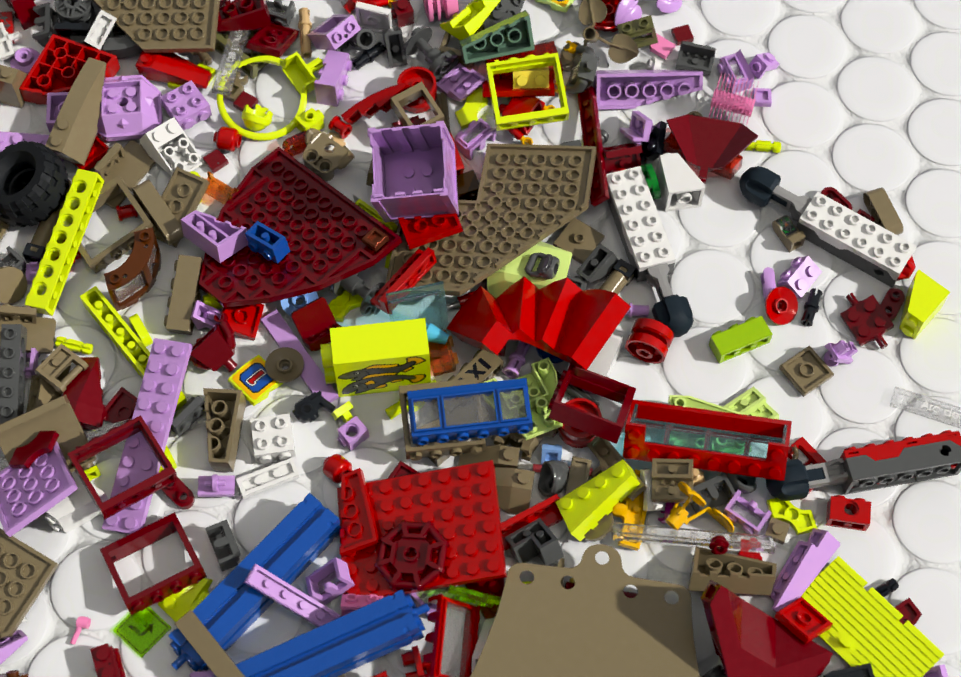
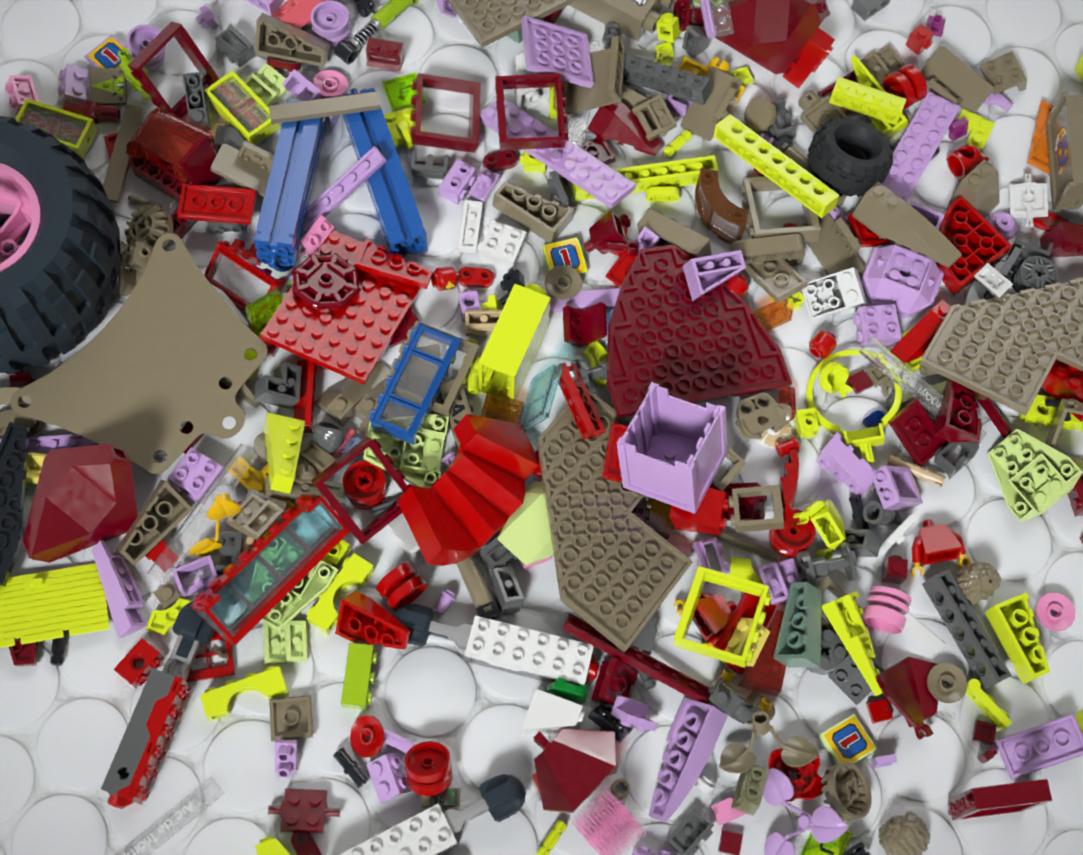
camera: 115 degrees right, 5 degrees up
(26, 455) = (587, 64): dark red tile -> none
(81, 622) = (432, 53): bright pink hand -> none
(215, 160) = (806, 328): dark red tile -> none
(219, 510) = (457, 182): none -> lavender brick
(267, 242) = (677, 304): blue brick -> none
(275, 78) = (873, 419): none -> clear blue tile
(317, 446) = (475, 277): none -> red plate
(329, 581) = (352, 222): lavender window -> none
(365, 407) = (481, 322): none -> tan brick
(375, 239) = (629, 391): copper tile -> none
(394, 66) = (828, 524): none -> neon yellow torso
(436, 335) = (516, 404): medium azure cone -> none
(547, 268) = (521, 530): dark grey piece -> none
(579, 240) = (543, 595): dark tan plate -> none
(658, 388) = (354, 573): none -> neon yellow arch
(664, 563) = (194, 475): none -> lavender brick
(693, 353) = (368, 622): none -> red wedge
(716, 542) = (178, 524): dark red plate -> none
(765, 243) = (428, 768): none -> red wheel
(803, 620) = (73, 555): red tile -> none
(831, 431) = (218, 701): none -> neon yellow arch

